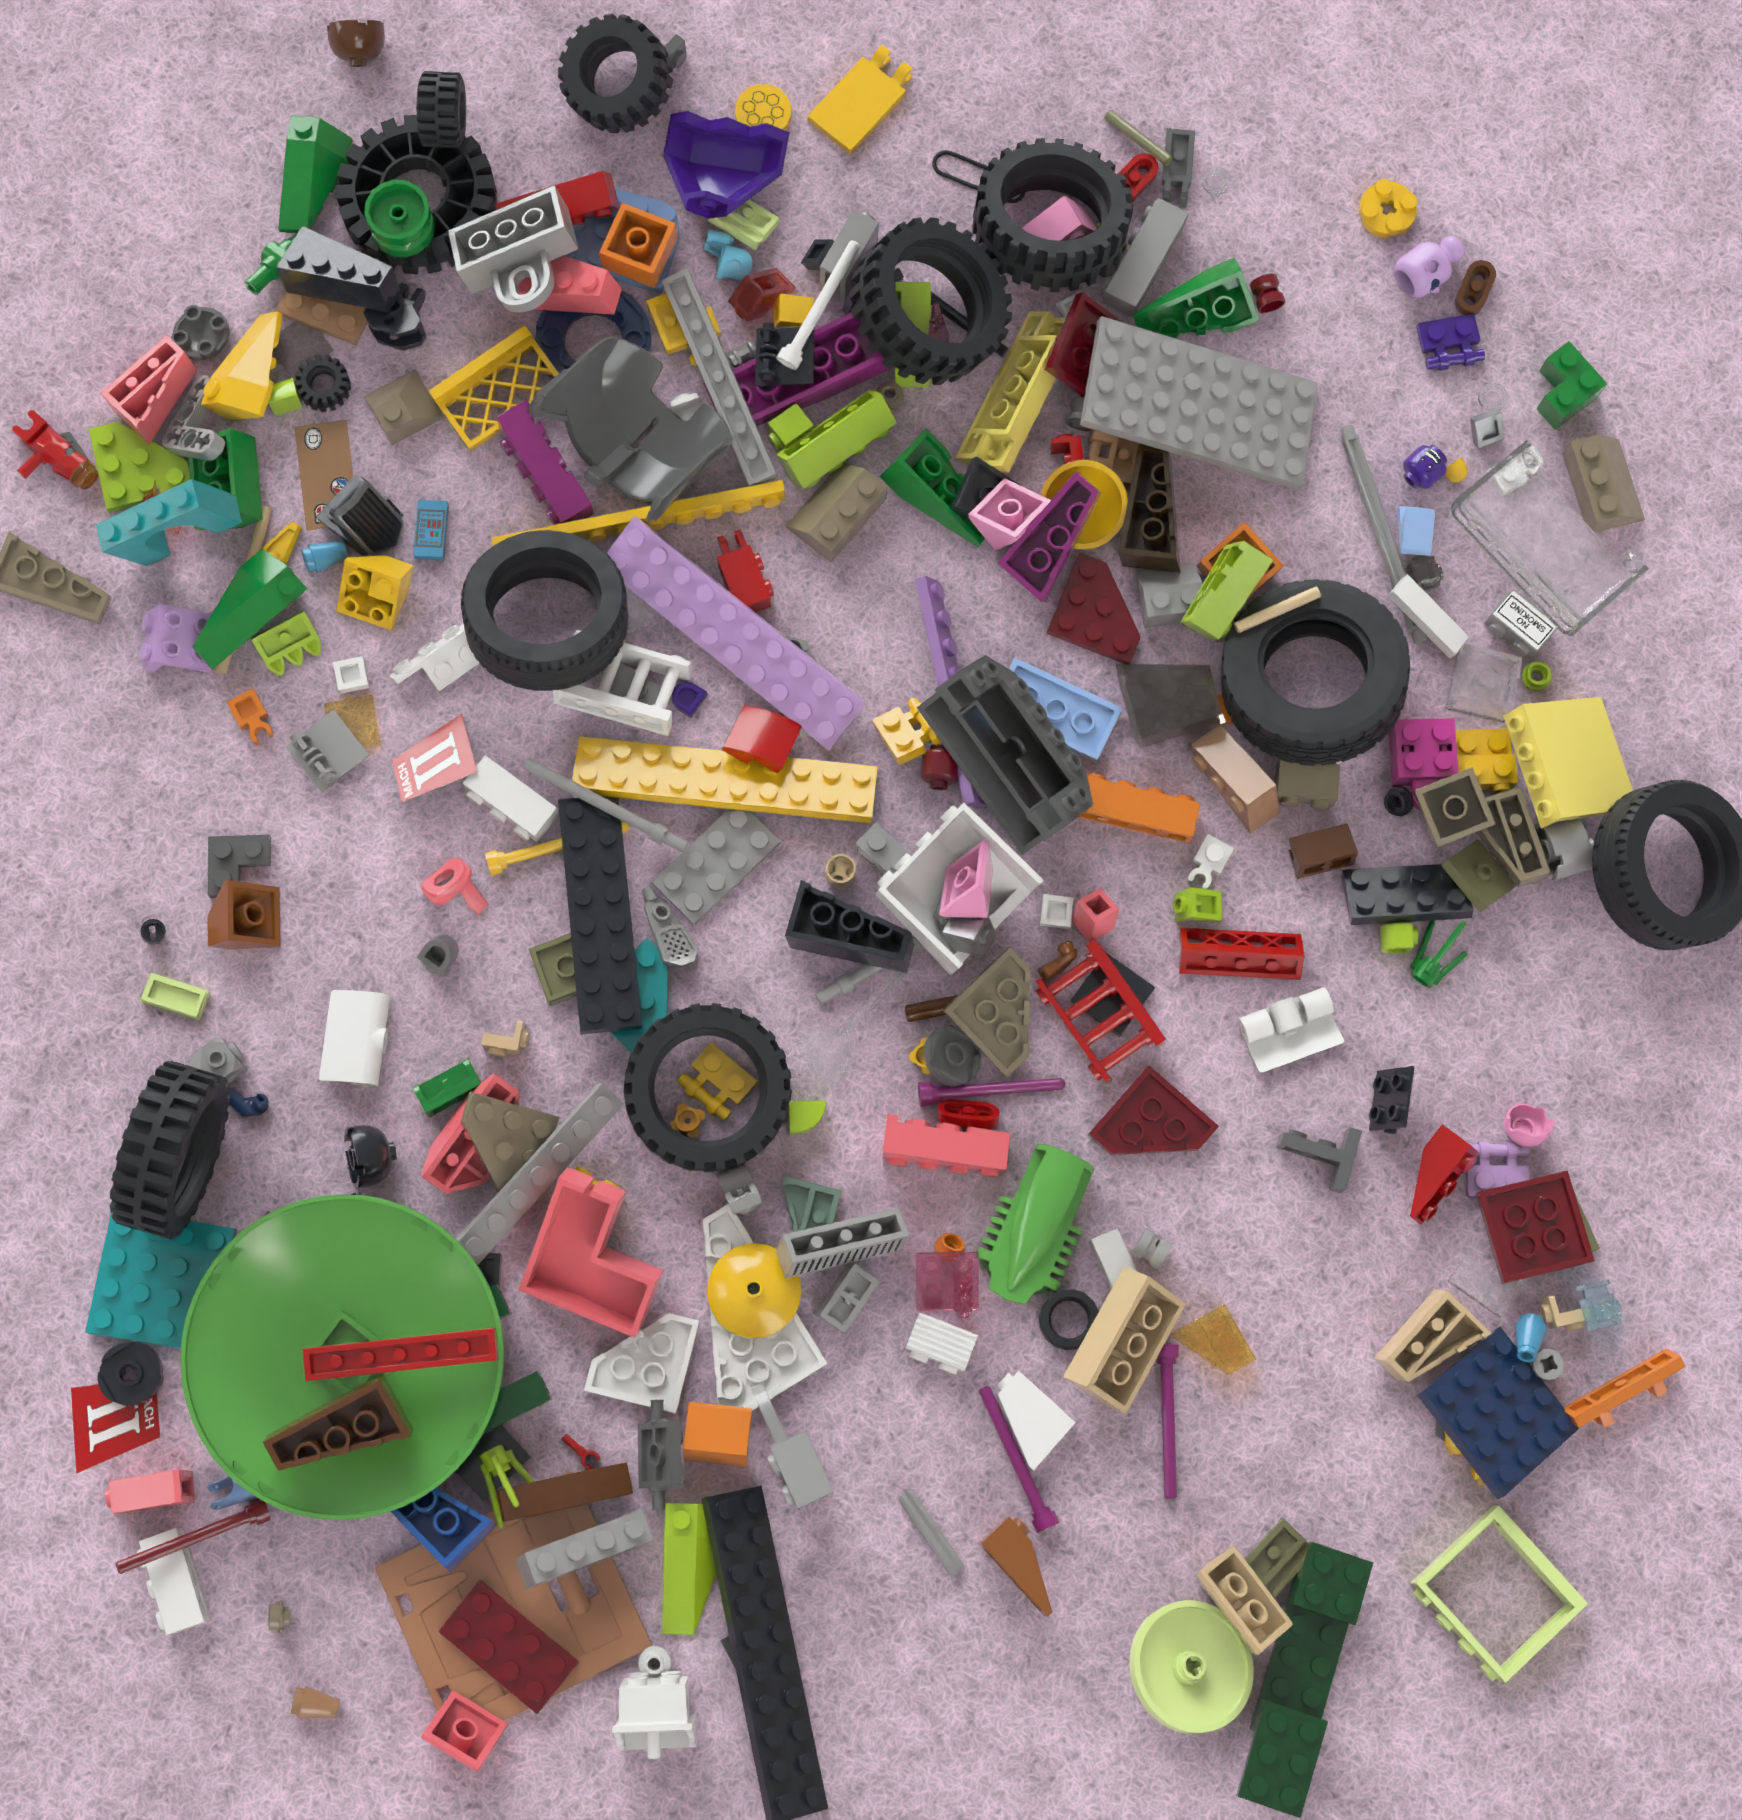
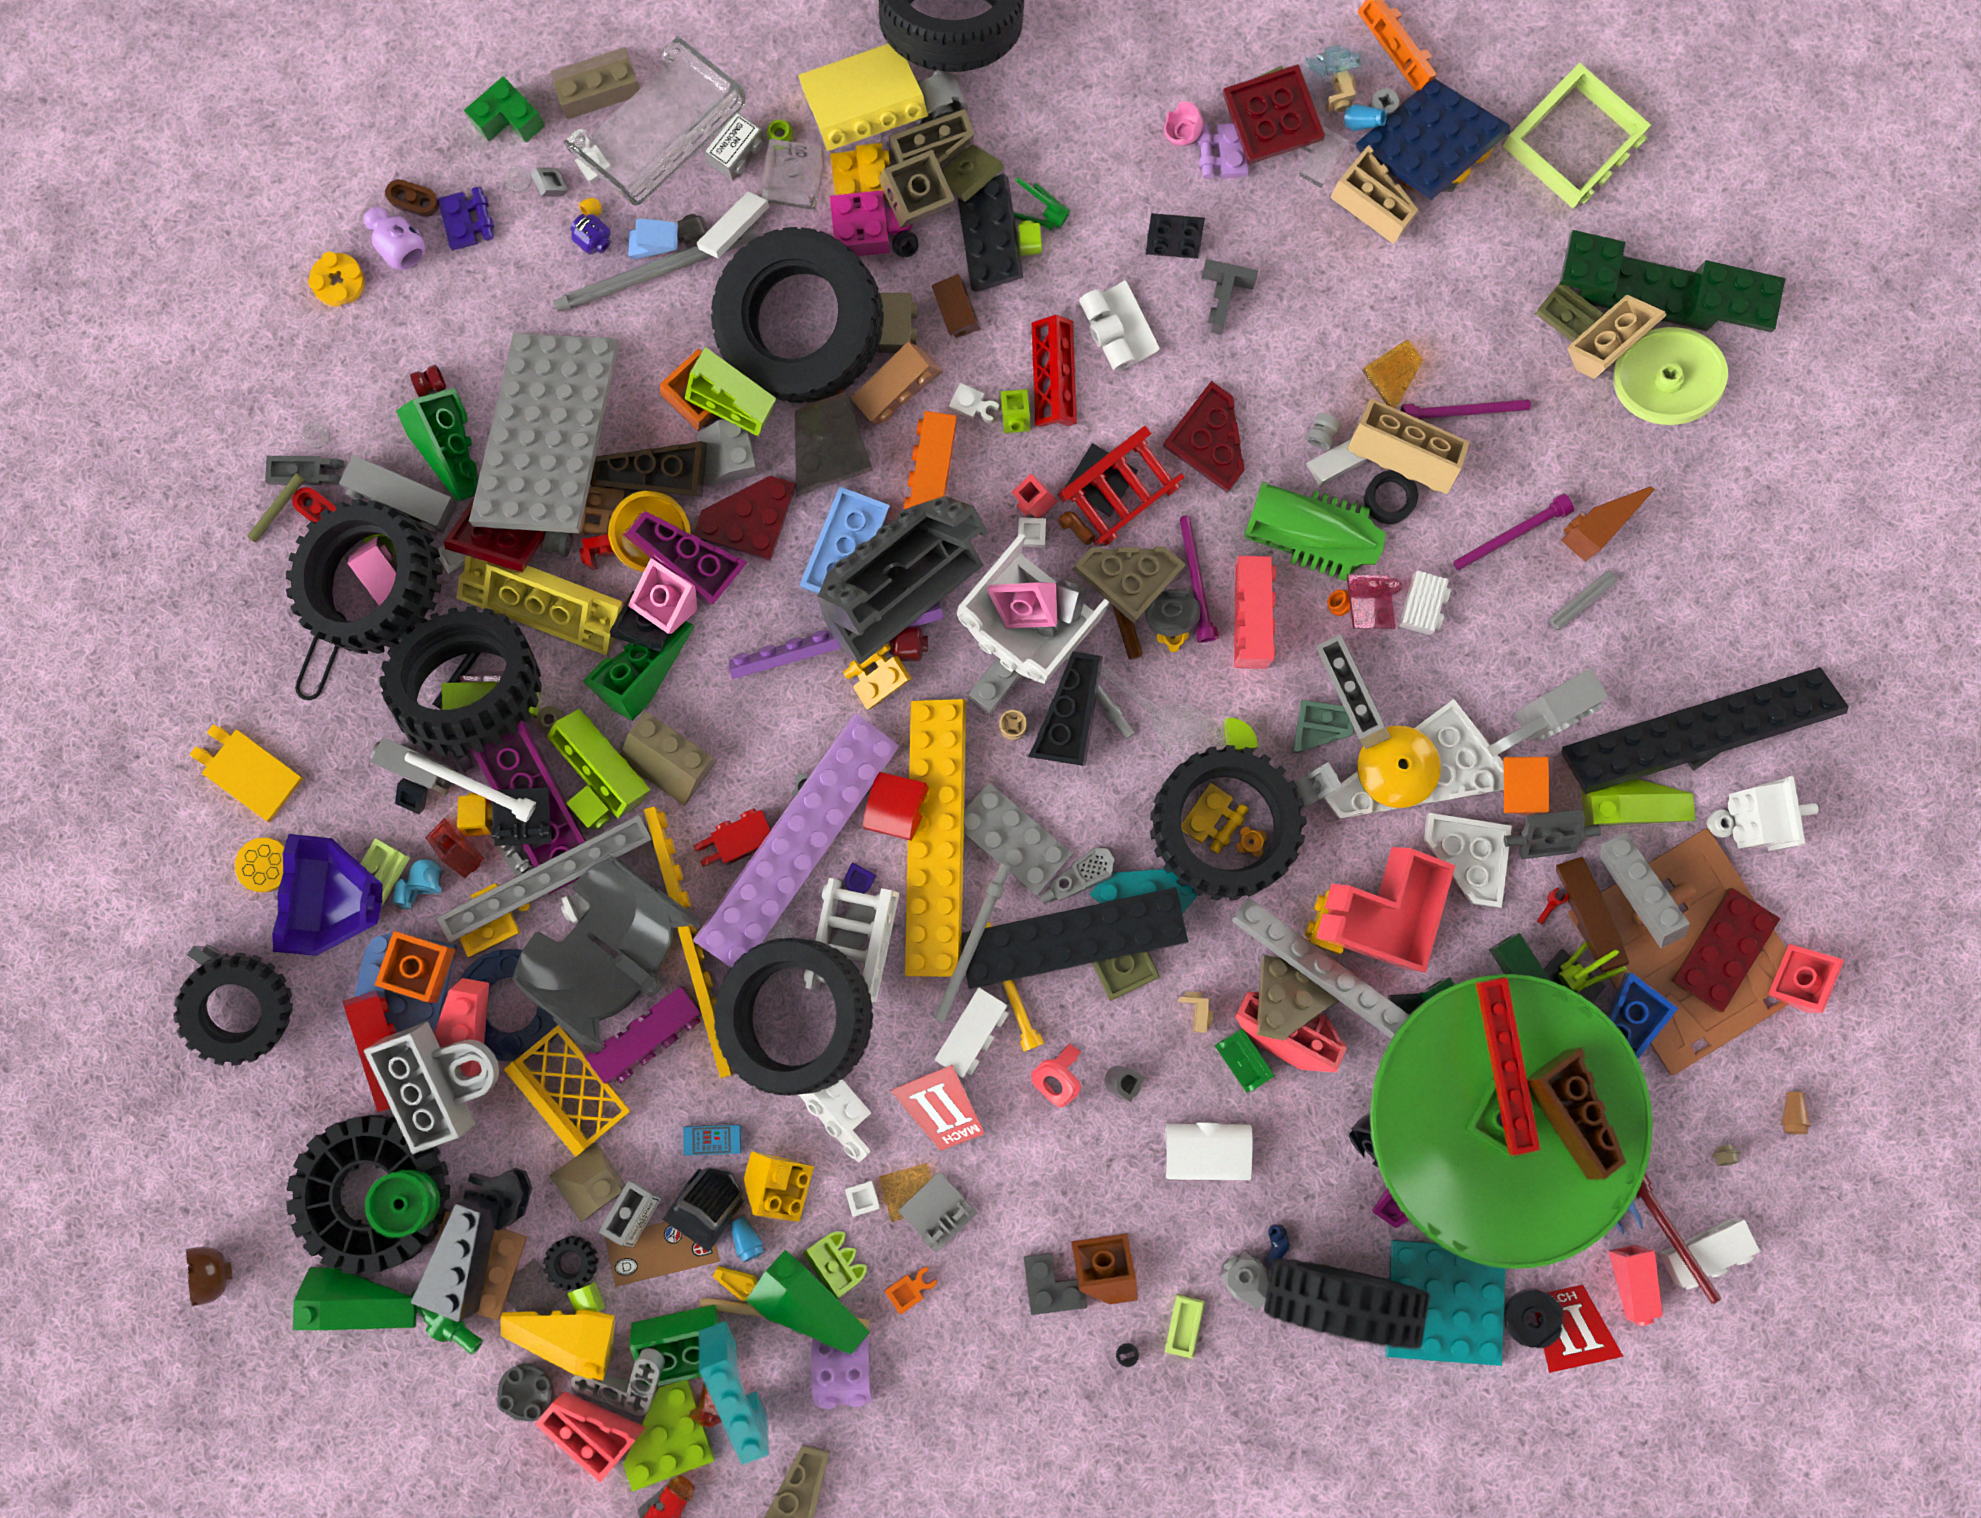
camera: 90 degrees left, 5 degrees up
(363, 441) = (630, 1214): none -> light grey brick
(368, 1155) = (1316, 1124): black cylinder -> none
(441, 109) = (285, 1173): black tyre -> none
(846, 1297) = (1395, 687): light grey hinge -> none
(968, 1113) = (1222, 595): red plate -> none
(1032, 1418) = (1479, 521): white slope -> none
(1277, 609) = (745, 348): tan bar -> none
(1441, 1165) = (1226, 194): red slope -> none

